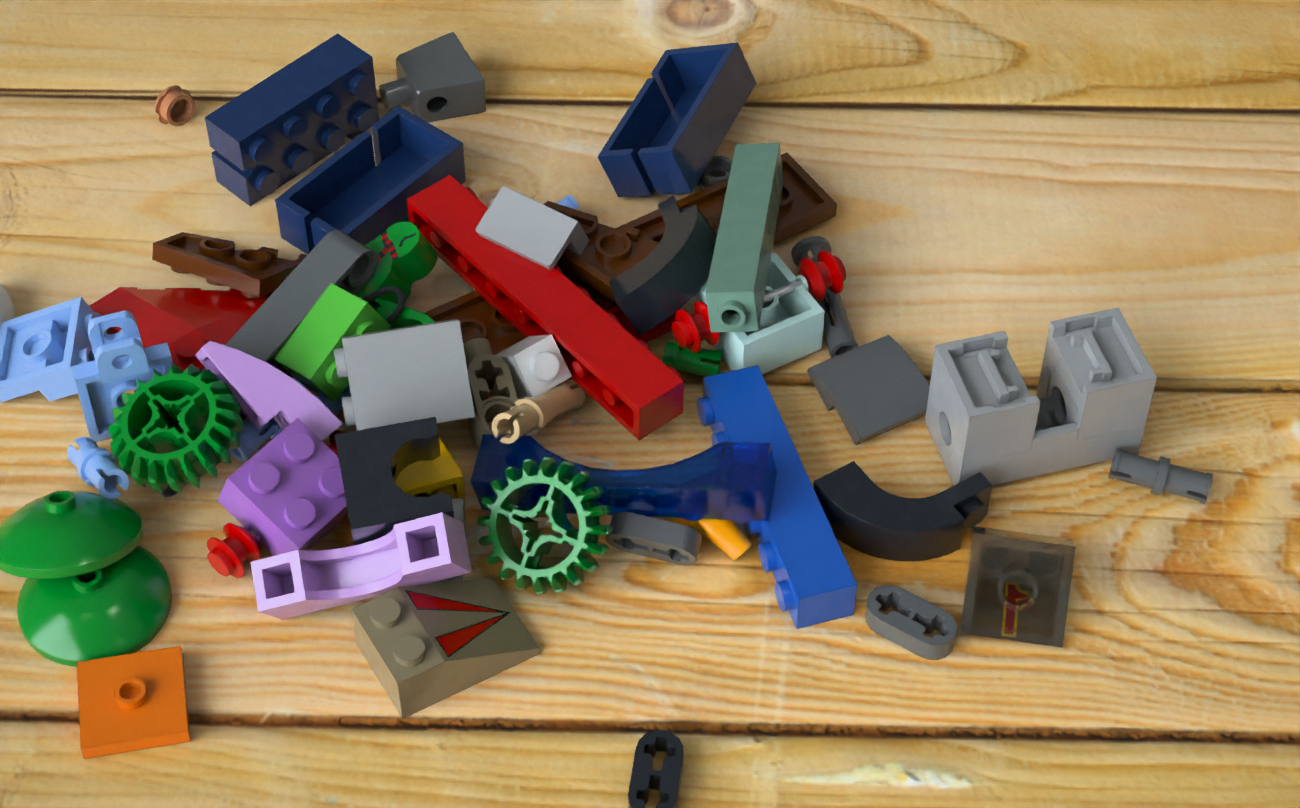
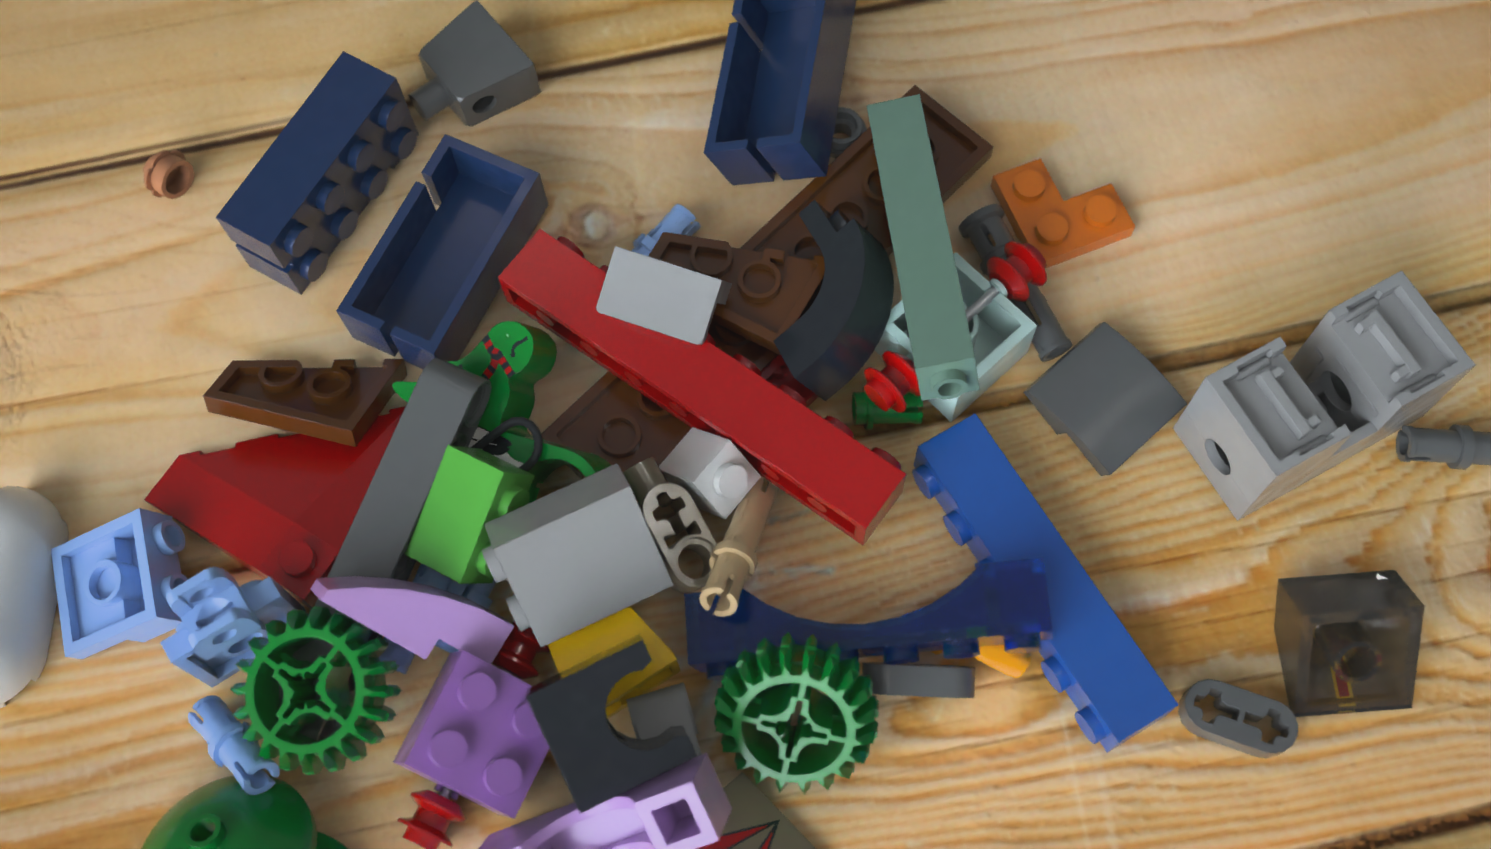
camera: 10 degrees left, 20 degrees up
(879, 273) = (1059, 226): none -> orange plate
(897, 525) = (1180, 595): black arch -> none

